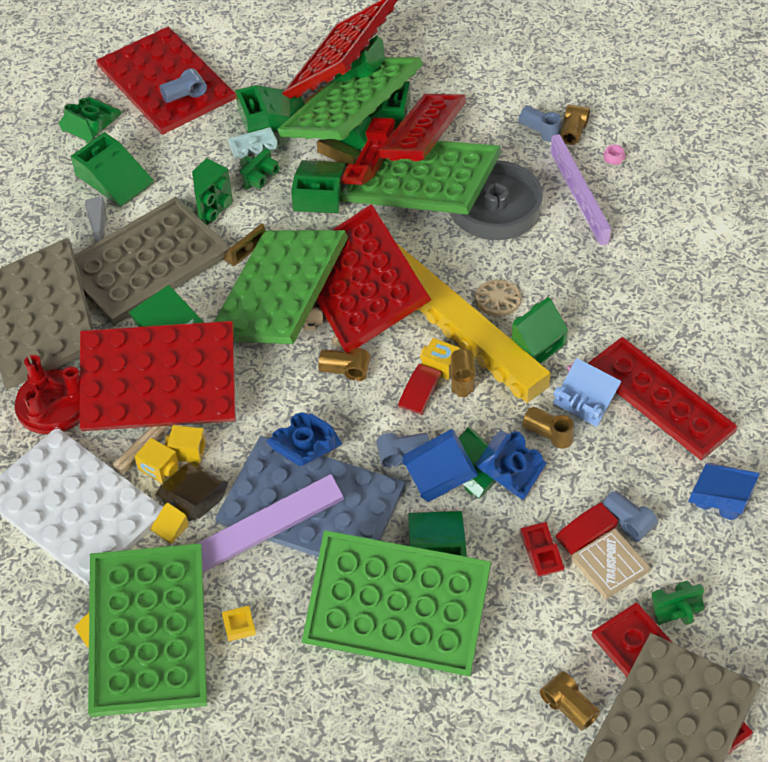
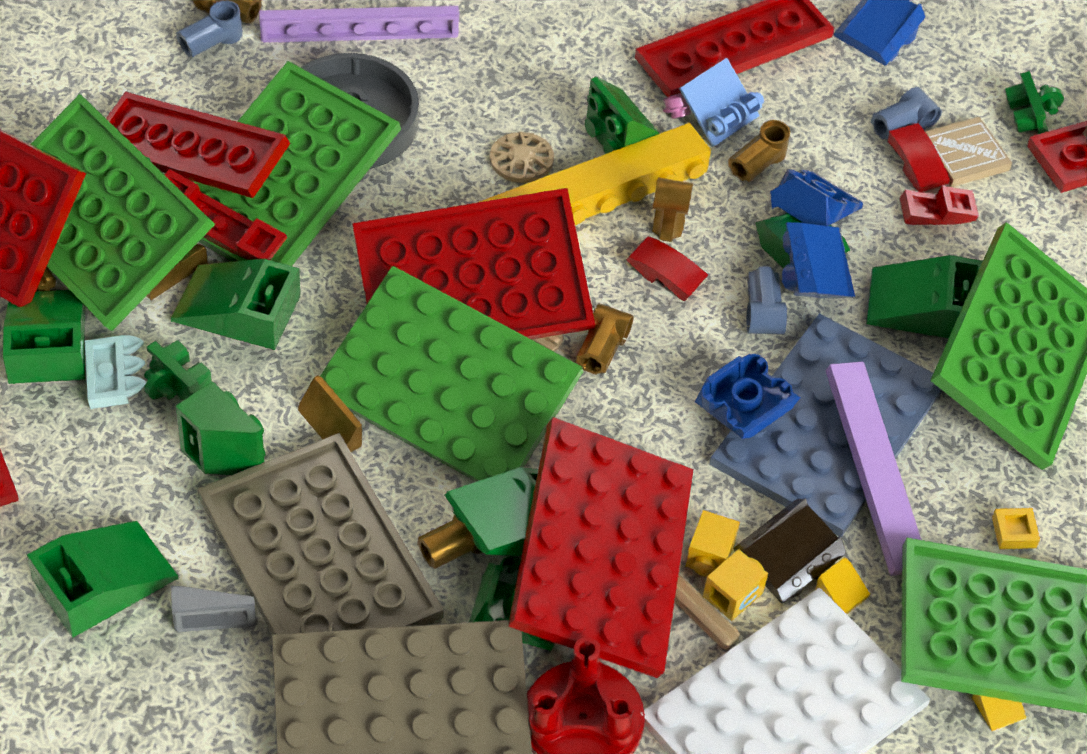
camera: 85 degrees left, 0 degrees up
(438, 356) = (624, 231): yellow brick -> none

